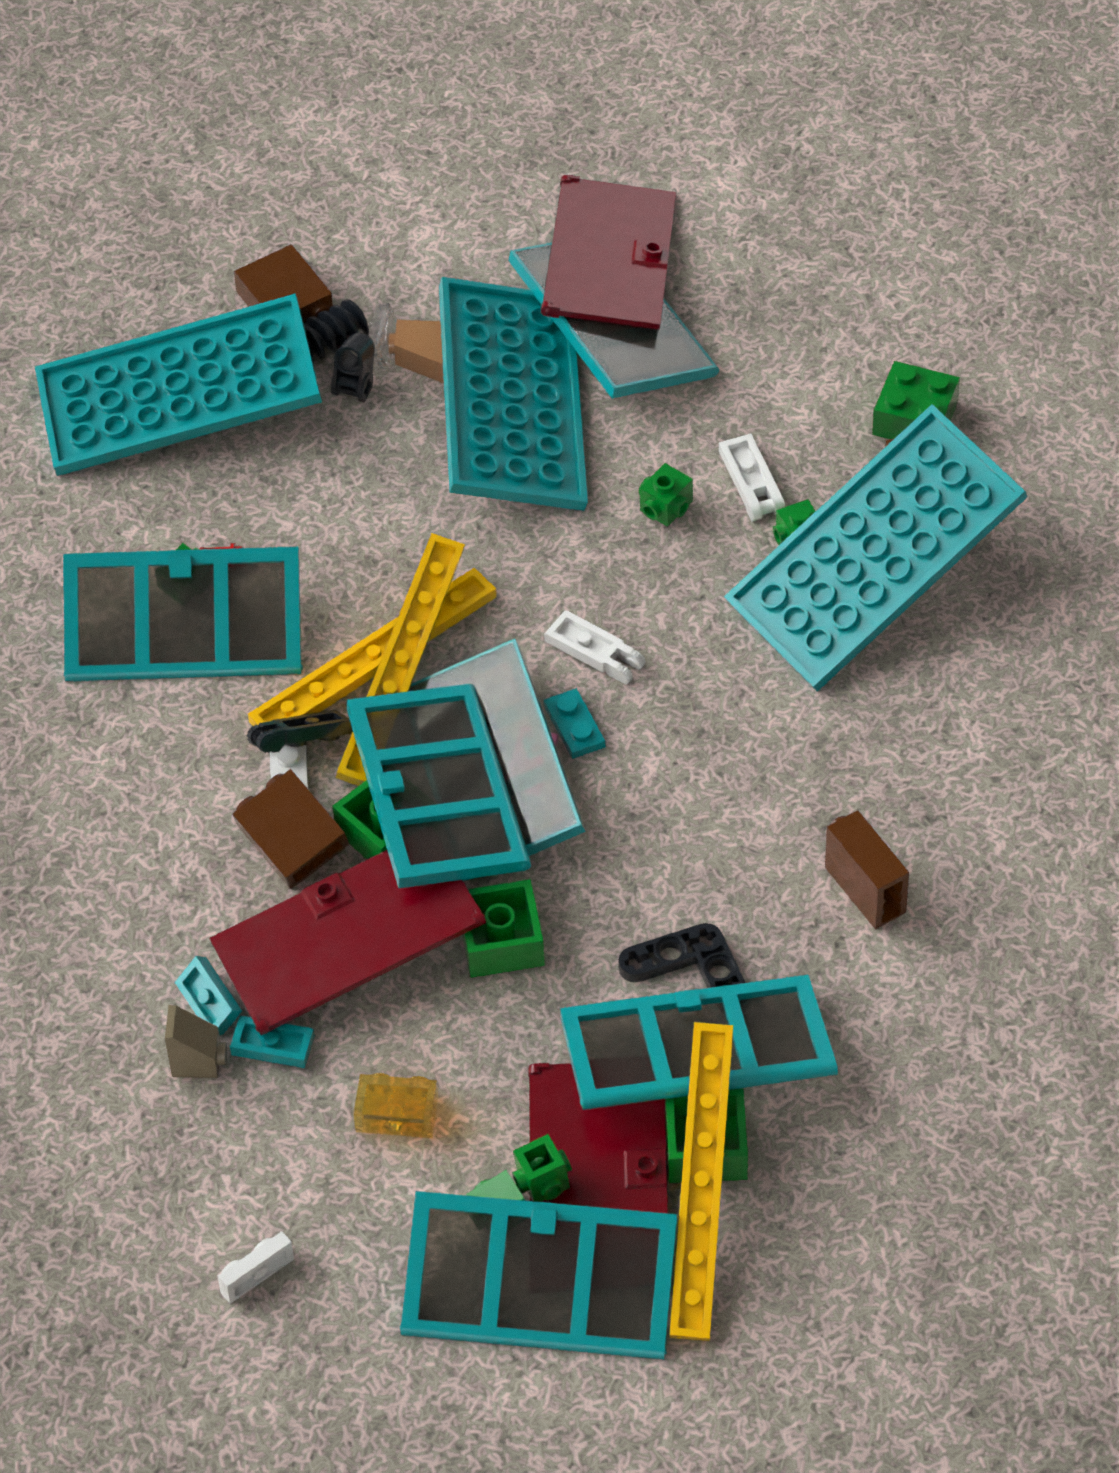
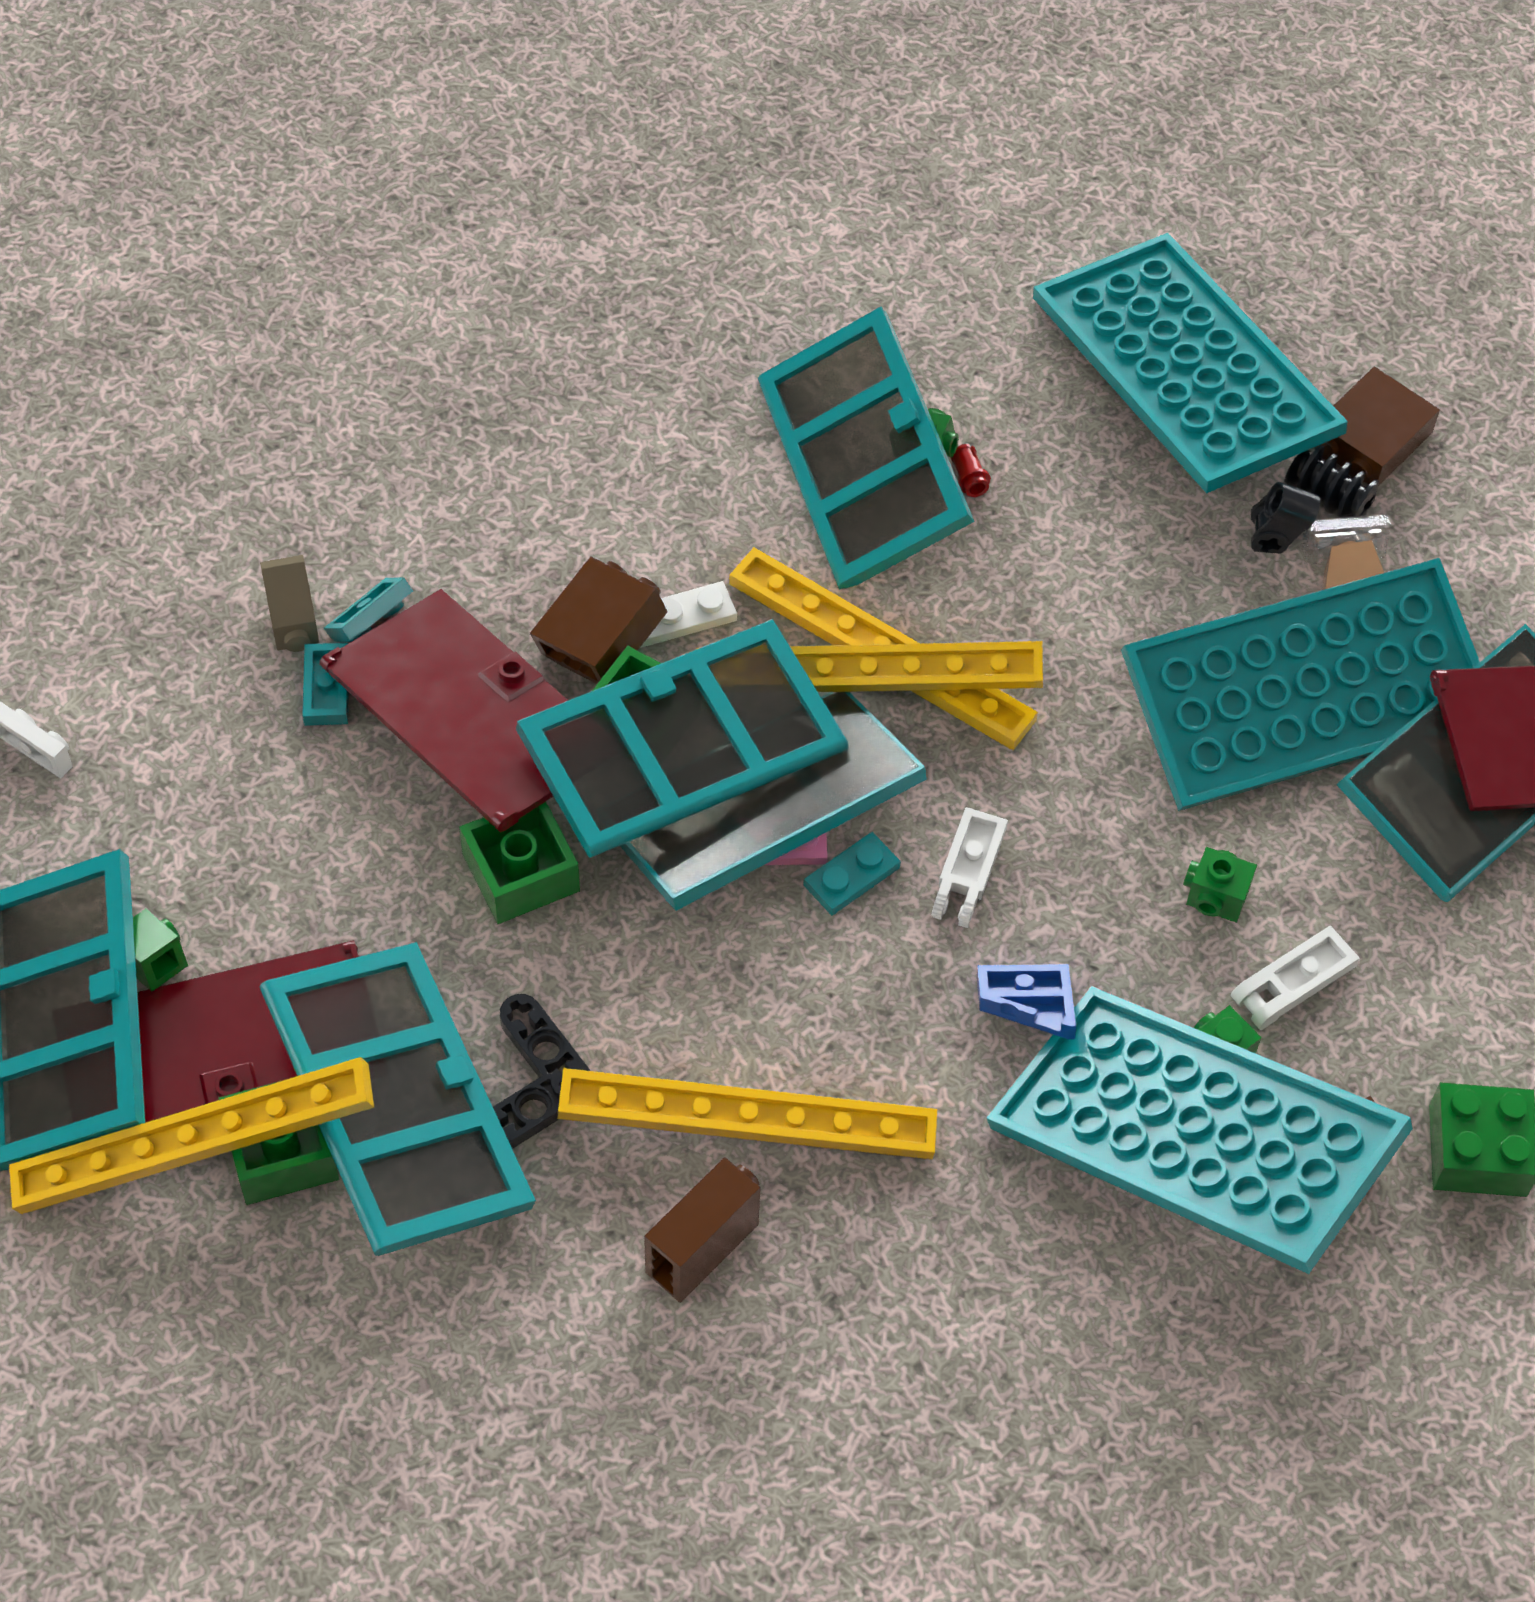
camera: 70 degrees right, 5 degrees up
(298, 730) = (736, 590): black hinge -> none
(396, 1105) = (263, 818): clear yellow brick -> none
(541, 1169) = (187, 973): green brick -> none
(722, 633) = (1029, 995): none -> wing
(769, 831) = (747, 1113): none -> yellow plate

